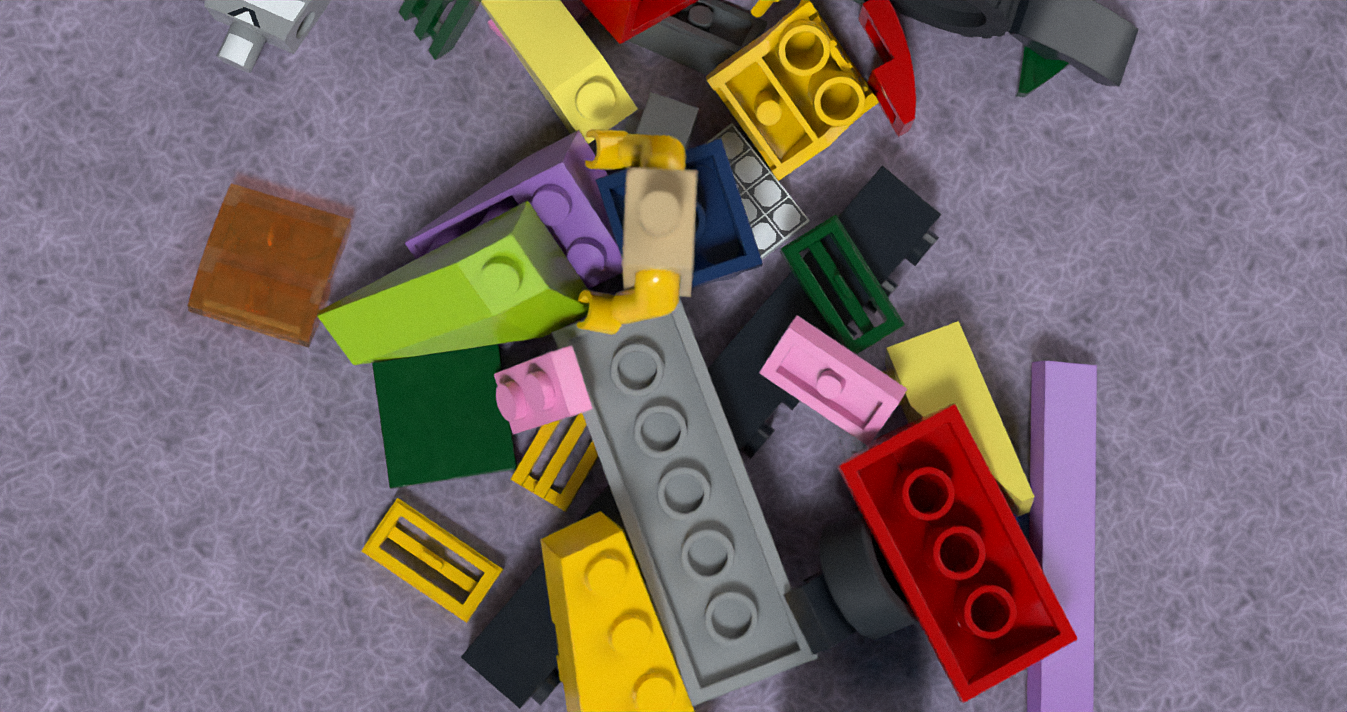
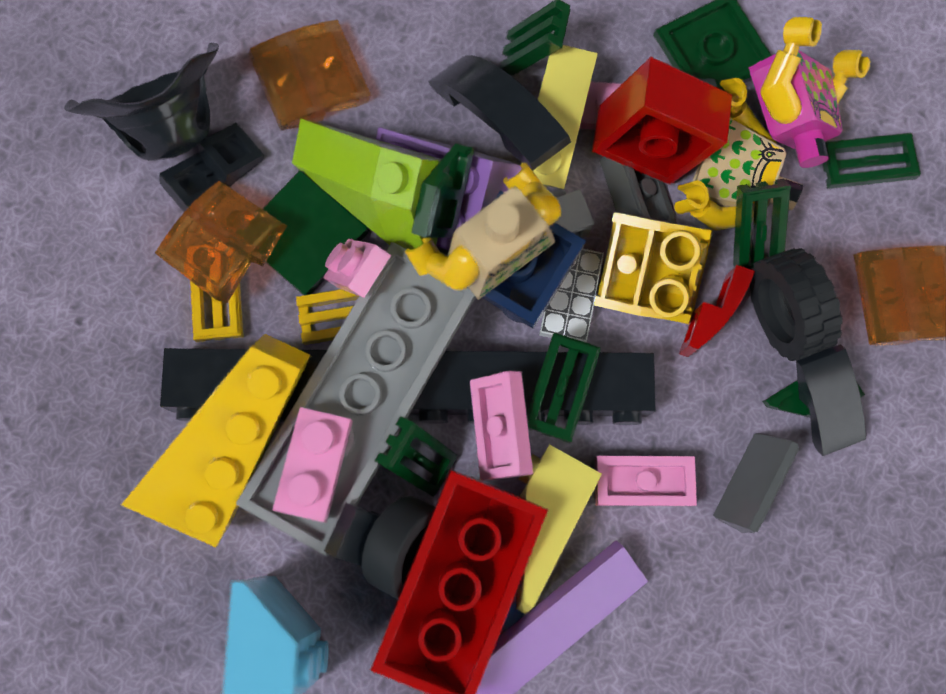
camera: 45 degrees right, 5 degrees down
(182, 456) = (161, 115): none -> black piece
(288, 455) = (220, 157): none -> black slope
(385, 508) = (220, 240): none -> clear orange slope
(494, 98) = (505, 106): none -> black slope
(554, 239) = (443, 194): none -> dark green tile
(720, 597) = (313, 465): none -> bright pink plate
(774, 495) = (401, 448): none -> dark green tile
(999, 282) = (646, 481): none -> bright pink plate
(1090, 175) = (756, 482): none -> dark grey slope

